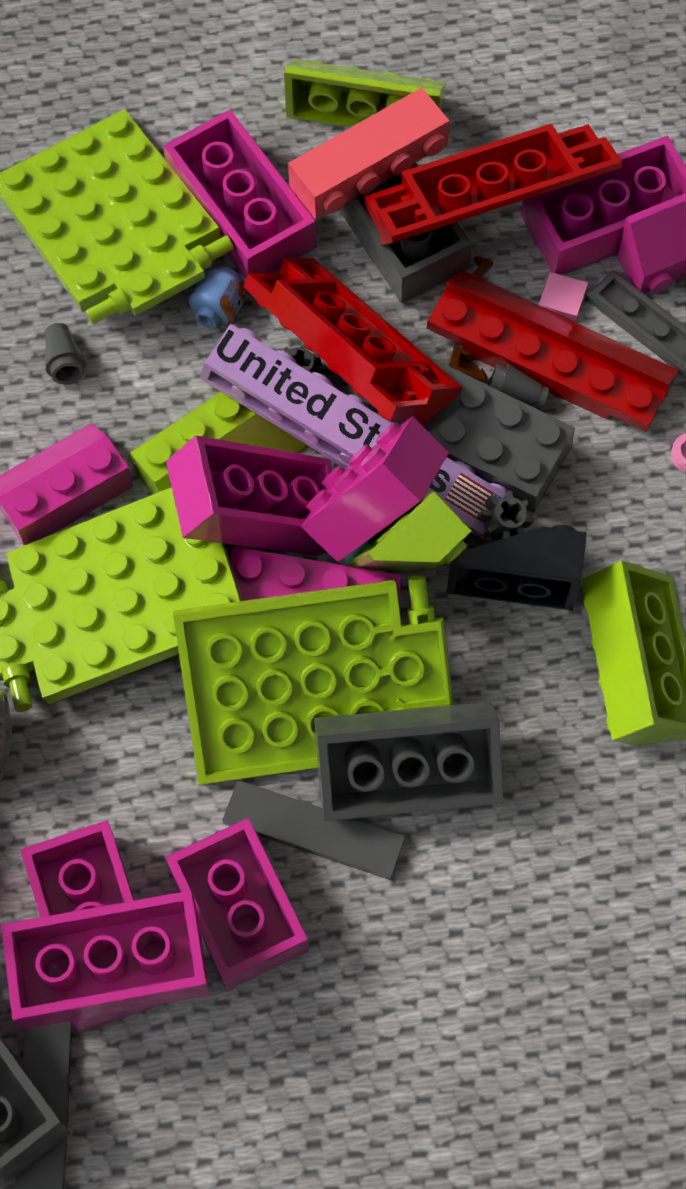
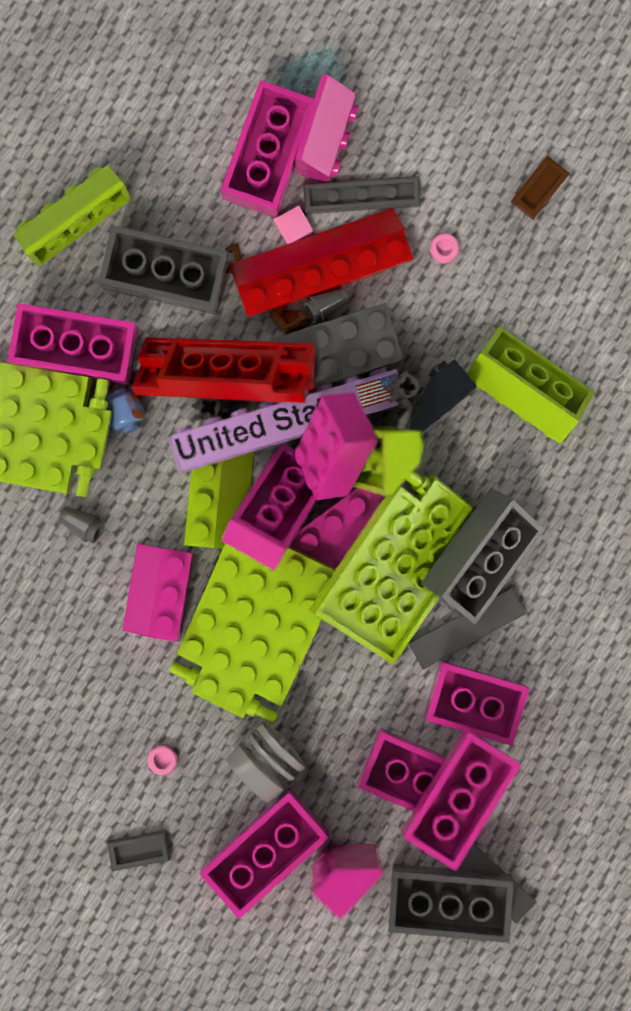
camera: 50 degrees left, 20 degrees up
(368, 153) = (125, 256): coral brick -> none
(488, 179) = (207, 210): red slope -> none

